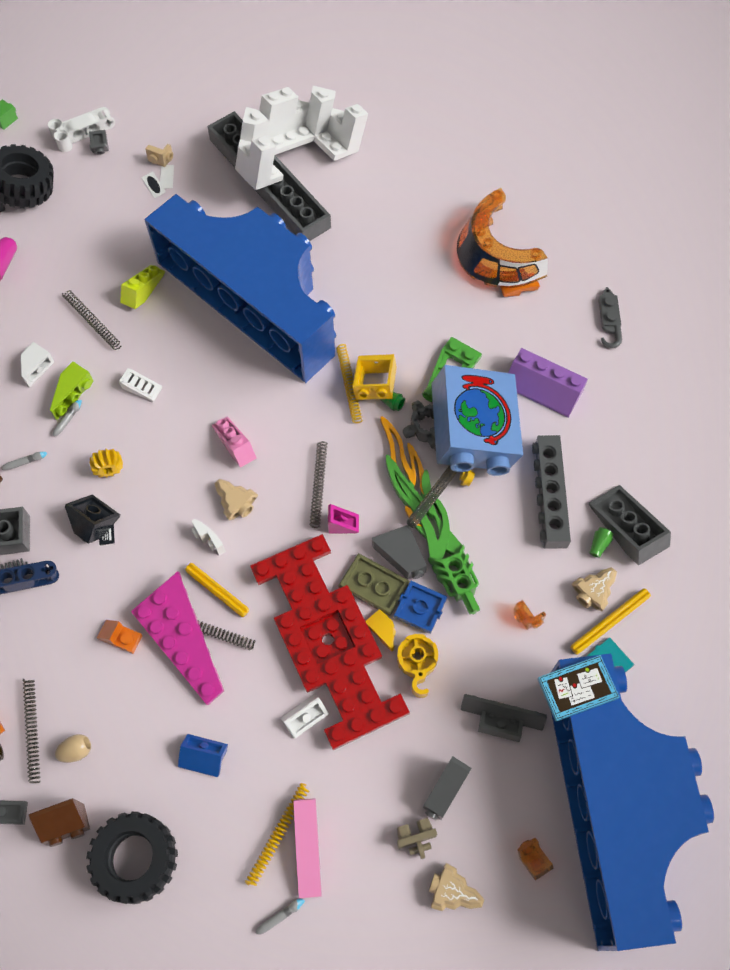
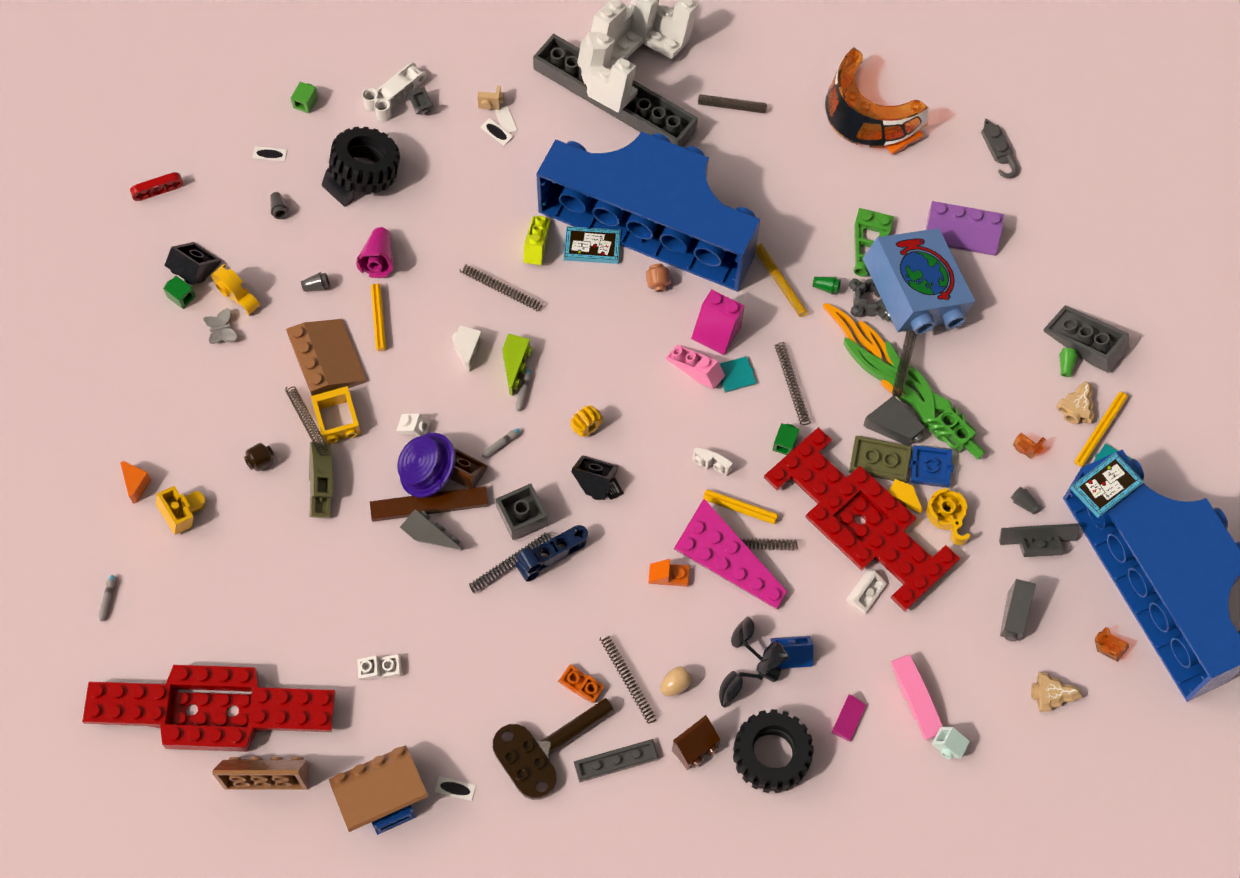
camera: 20 degrees left, 0 degrees up
(129, 380) = (573, 343): white slope -> none
(162, 763) = (767, 667): none -> black plant
(190, 304) = (592, 245): none -> tile
(229, 846) = (849, 718): none -> dark pink slope
(235, 349) = (658, 277): none -> nougat head
(235, 499) = (720, 419): tan rock -> none
(269, 405) = (718, 322): none -> dark pink slope
(270, 460) = (737, 374): none -> teal piece
(275, 840) = (886, 697): yellow piece -> none
(280, 916) = (924, 748): light grey piece -> none
(287, 535) = (785, 439): none -> green brick
(319, 913) = (950, 743): none -> light aqua brick
(342, 521) = (828, 410): dark pink slope -> none
(367, 365) = (810, 252): yellow window -> none
(373, 213) = (731, 103): none -> clear smoke axle
(425, 833) = (1012, 653): dark tan hips -> none
(466, 478) = (926, 339): yellow plate -> none
(503, 671) = (1025, 500): none -> dark grey cone
(551, 446) = (1009, 318): dark grey brick -> none

